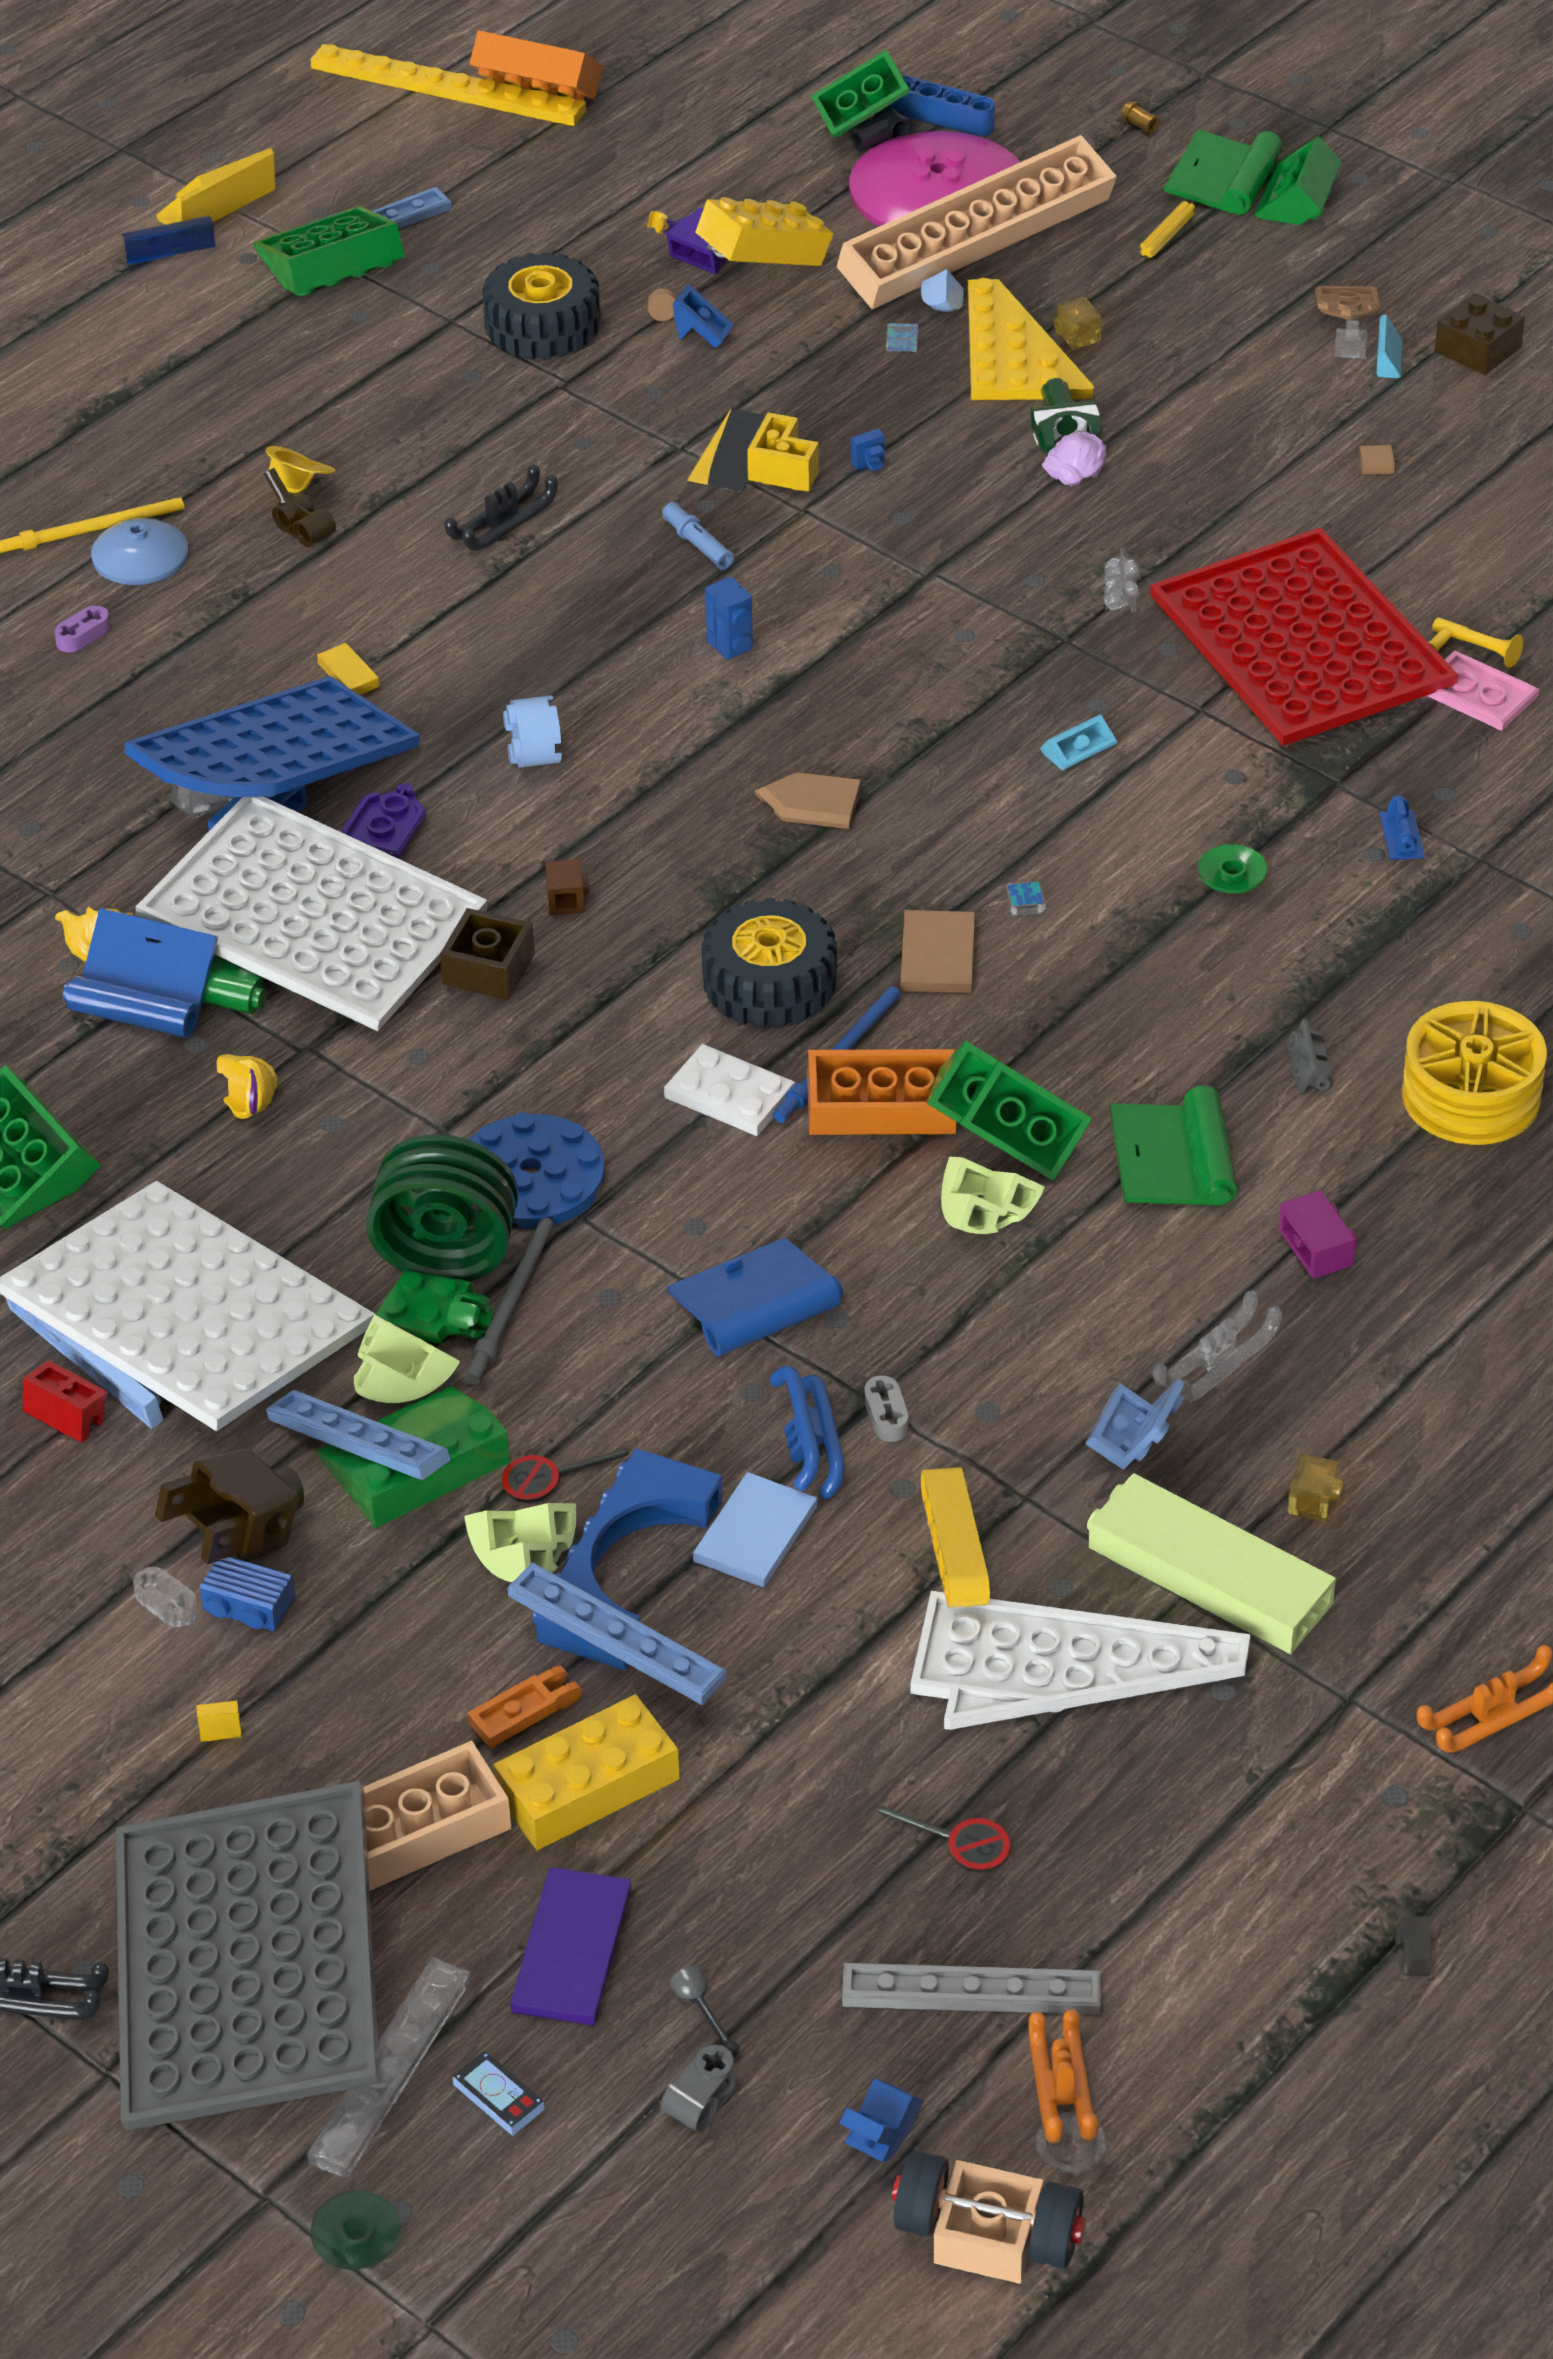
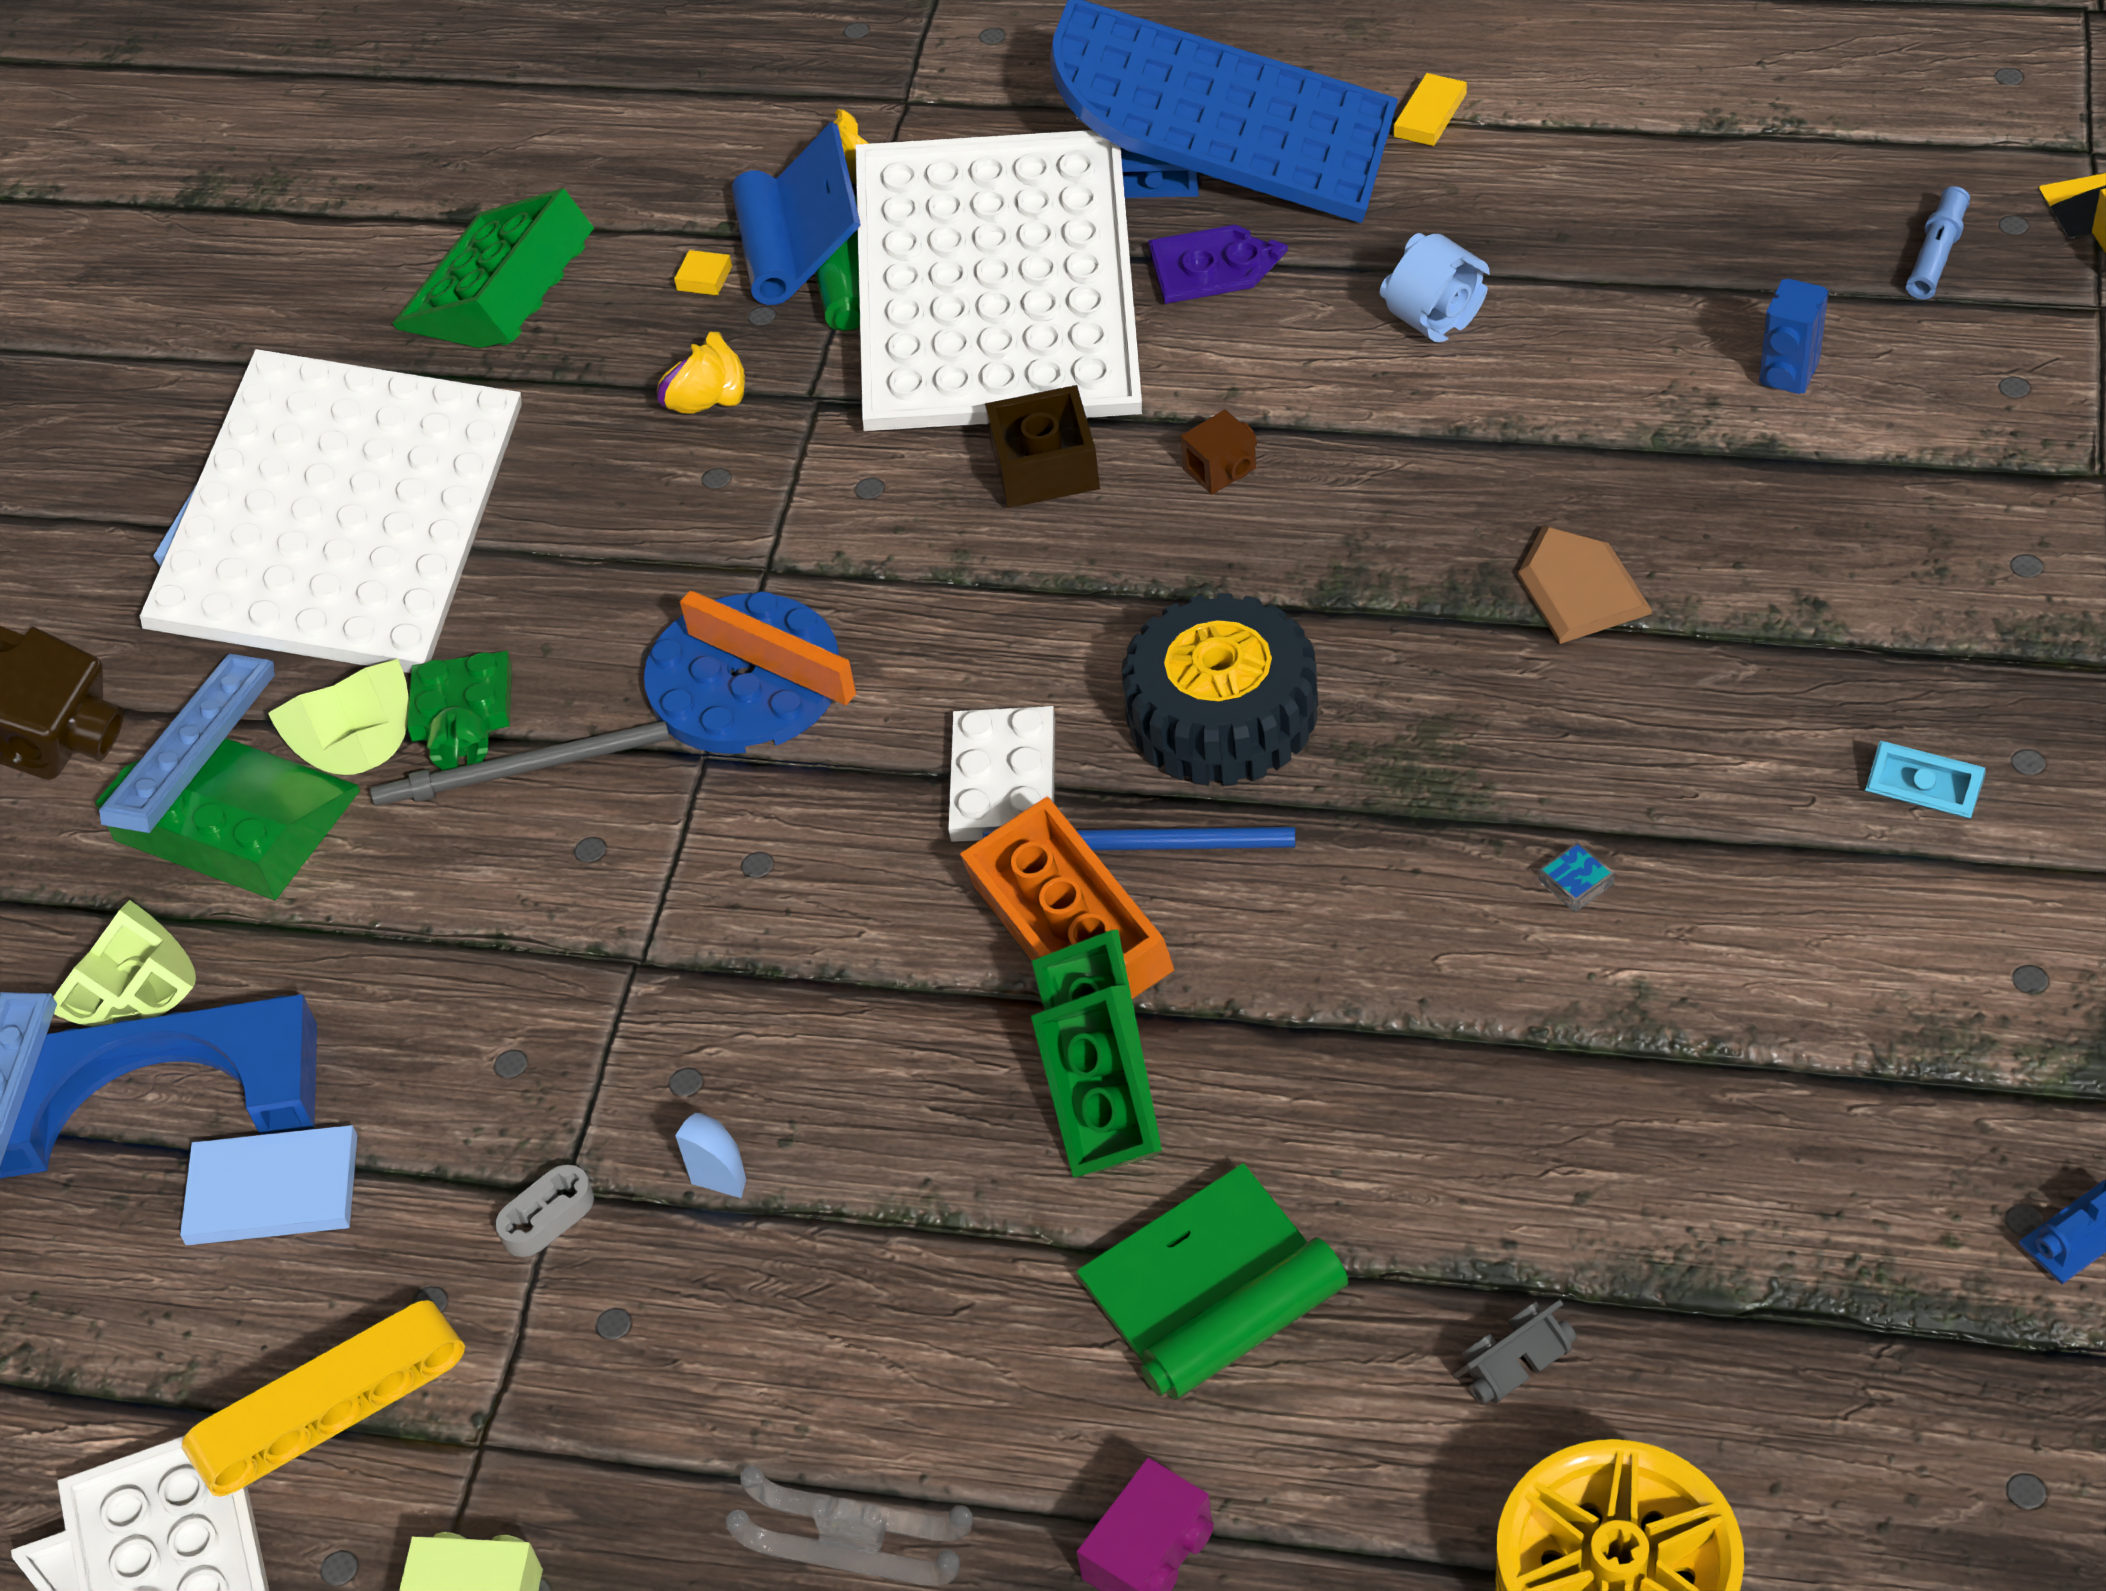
camera: 65 degrees right, 5 degrees up
(63, 1400) = (149, 494): red hinge -> none
(126, 1052) = (703, 272): none -> yellow tile
(429, 1199) = (549, 616): dark green wheel -> none
(503, 511) = (1804, 77): black piece -> none
(537, 1477) = (259, 931): piece -> none
(555, 1131) = (768, 647): none -> orange tile
(757, 1295) = (657, 977): blue door -> none
(809, 1429) = (440, 1147): blue piece -> none
(918, 1314) = (711, 1155): none -> light blue brick
(937, 951) = (1402, 841): medium nougat tile -> none
(984, 1199) = (969, 1119): yellowish green brick -> none
(1131, 1424) = (642, 1487): medium blue bracket -> none
(1232, 868) = (1817, 1048): green dish -> none

